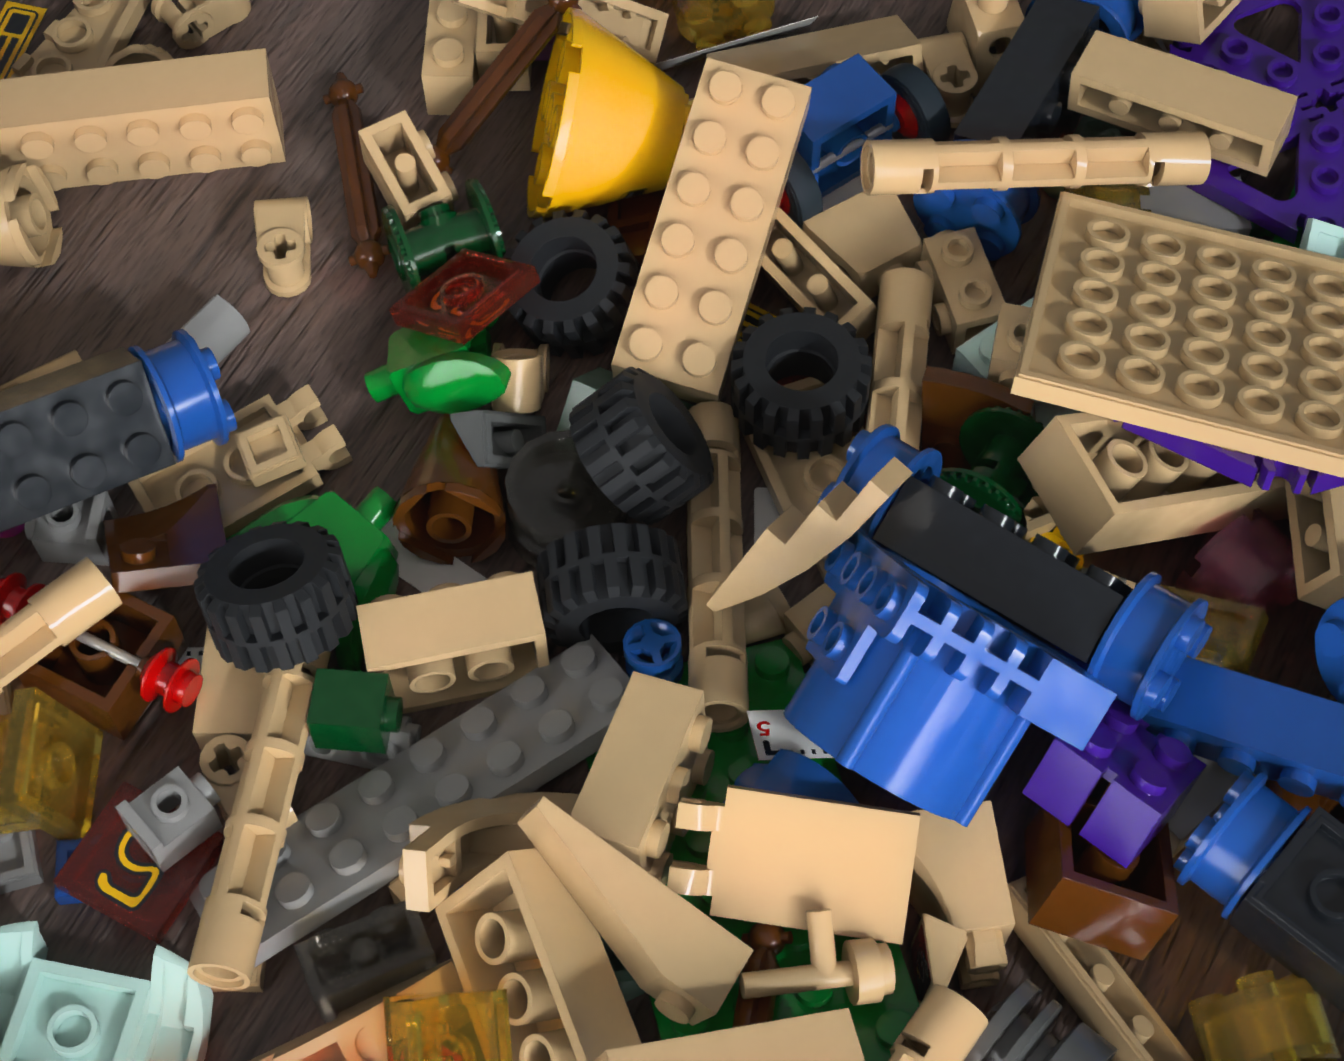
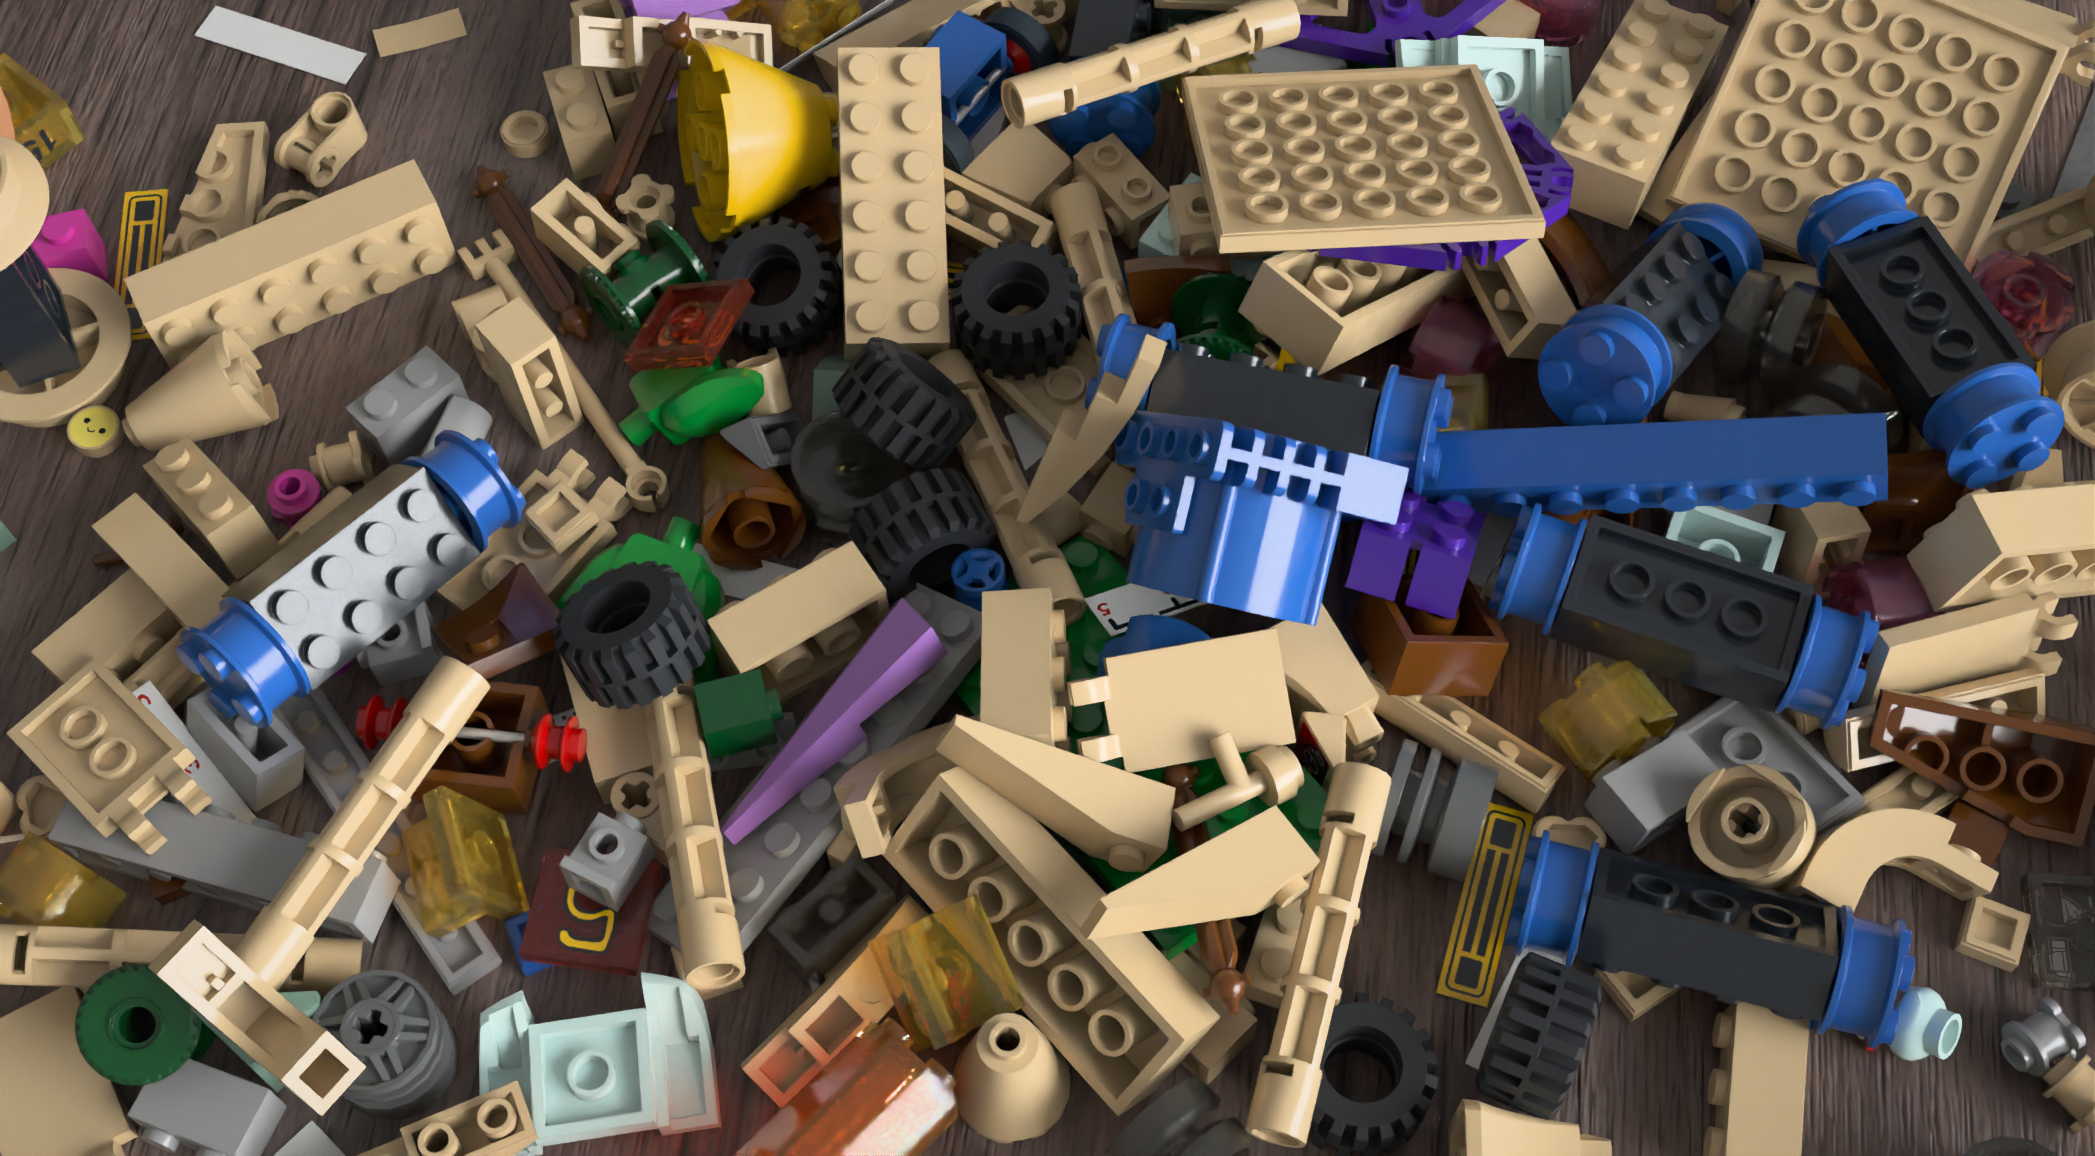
camera: 20 degrees left, 0 degrees up
(33, 344) = (293, 495): none -> dark pink brick
(91, 327) = (342, 462): none -> tan brick
(170, 290) = (405, 406): none -> light grey brick
(293, 295) = (530, 372): none -> tan brick
(366, 434) = (639, 475): none -> tan hinge
(397, 54) = (525, 134): none -> tan tile
(482, 159) = (646, 202): none -> tan brick
(511, 714) = (883, 666): none -> medium lavender wedge

